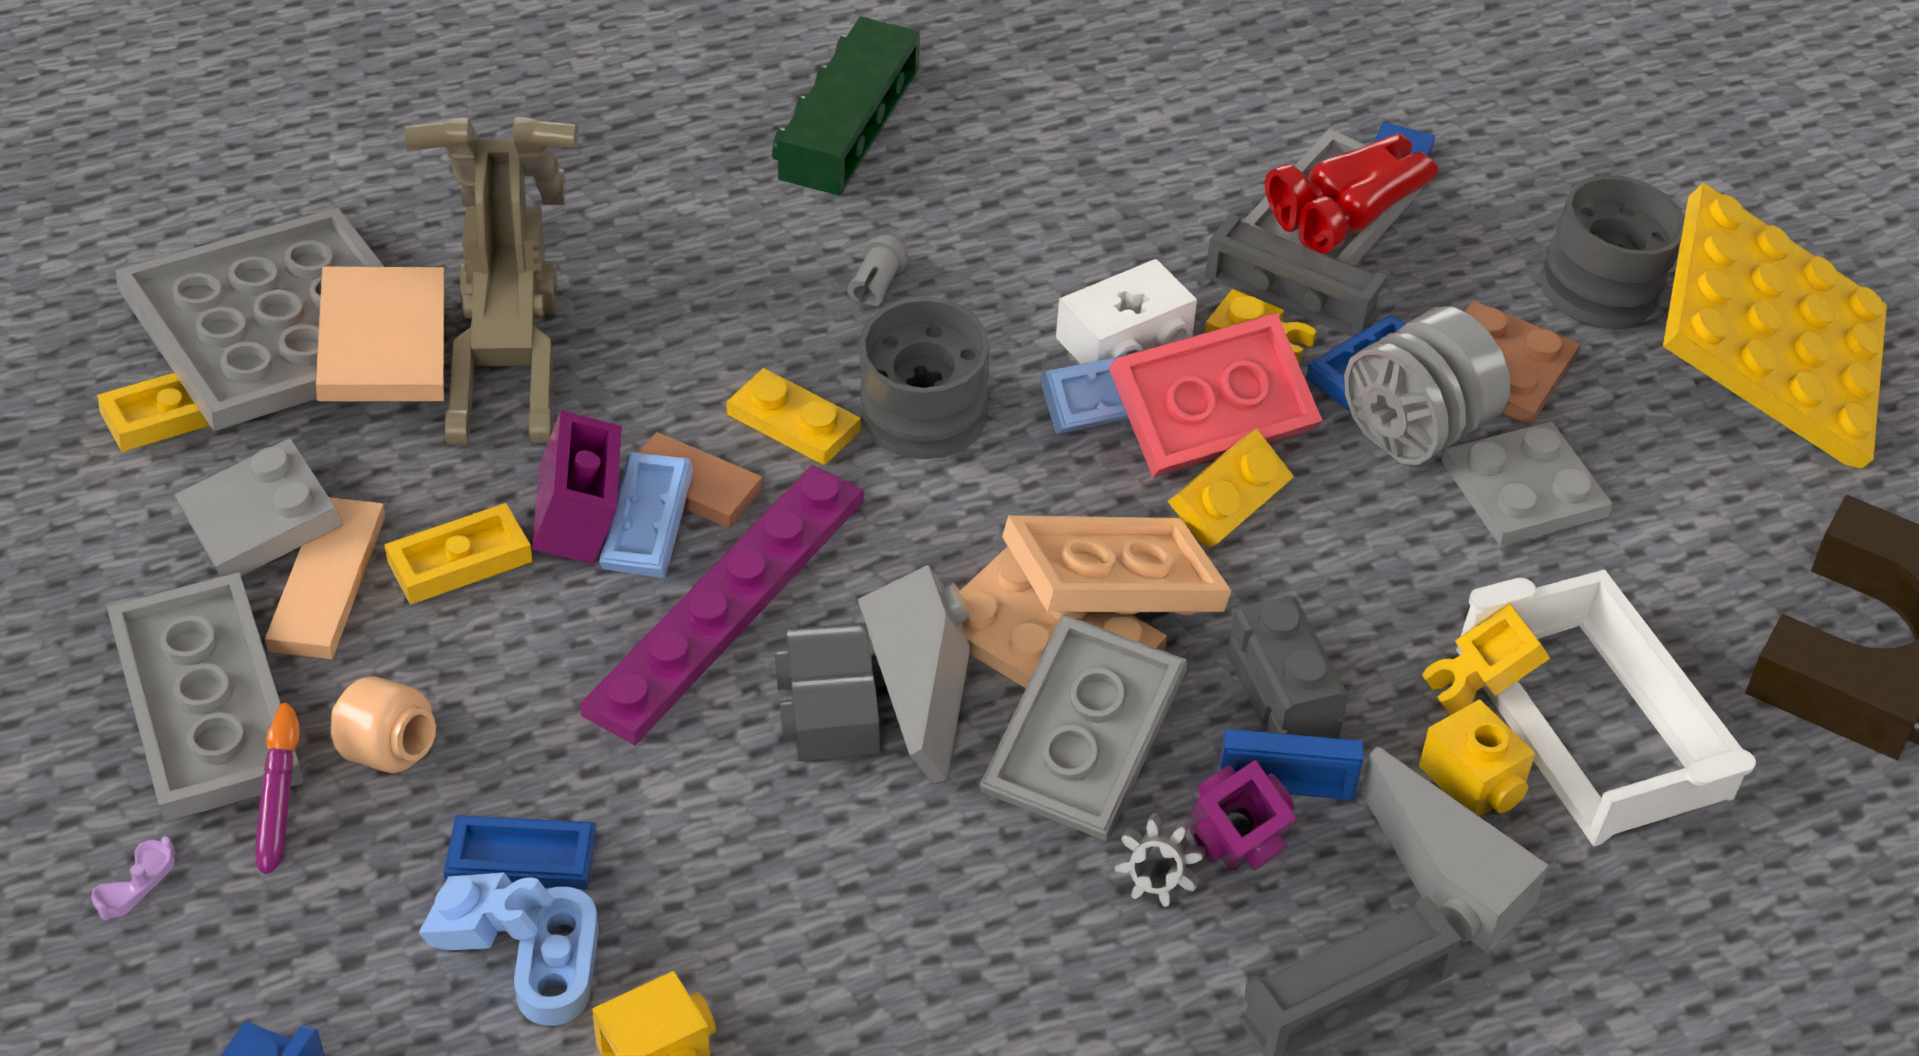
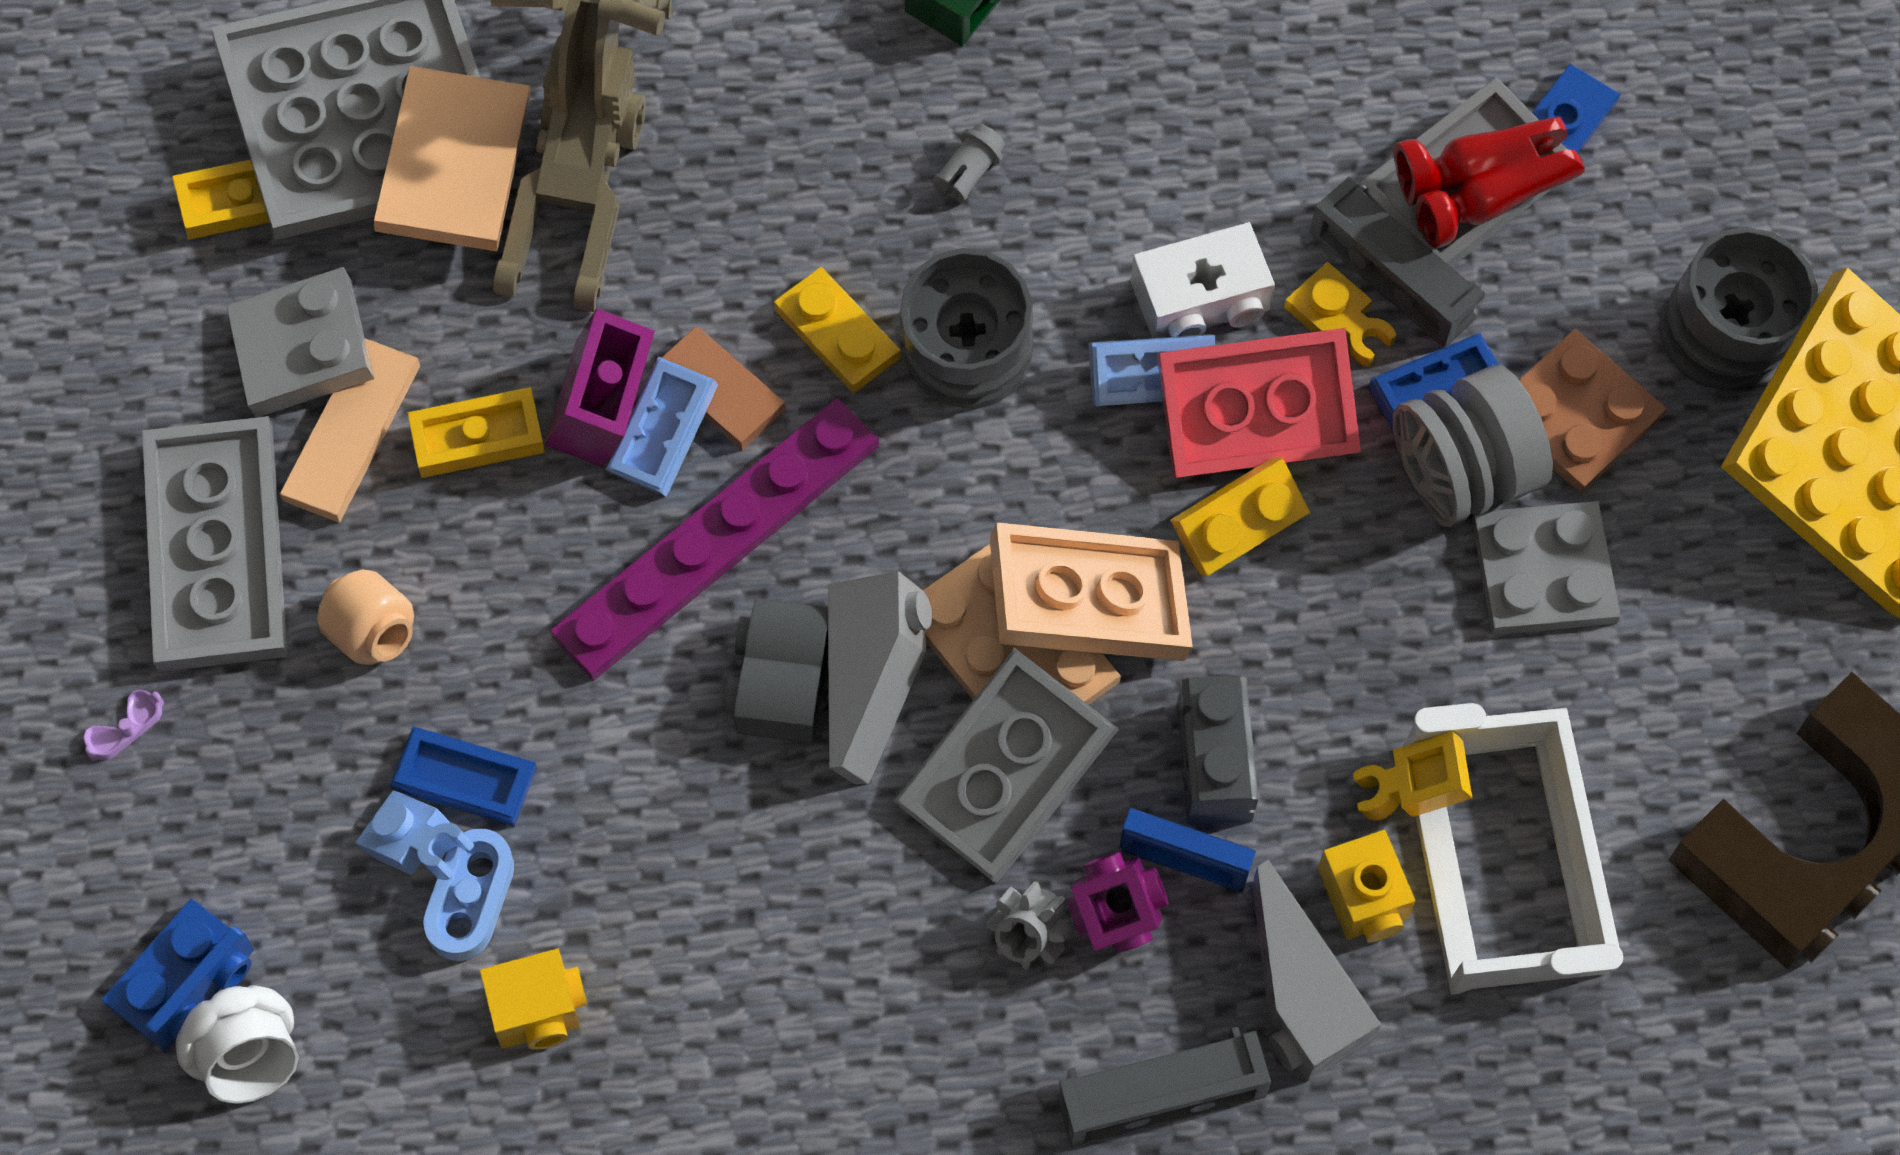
camera: 15 degrees right, 20 degrees up
(276, 787) = (258, 666): magenta piece -> none

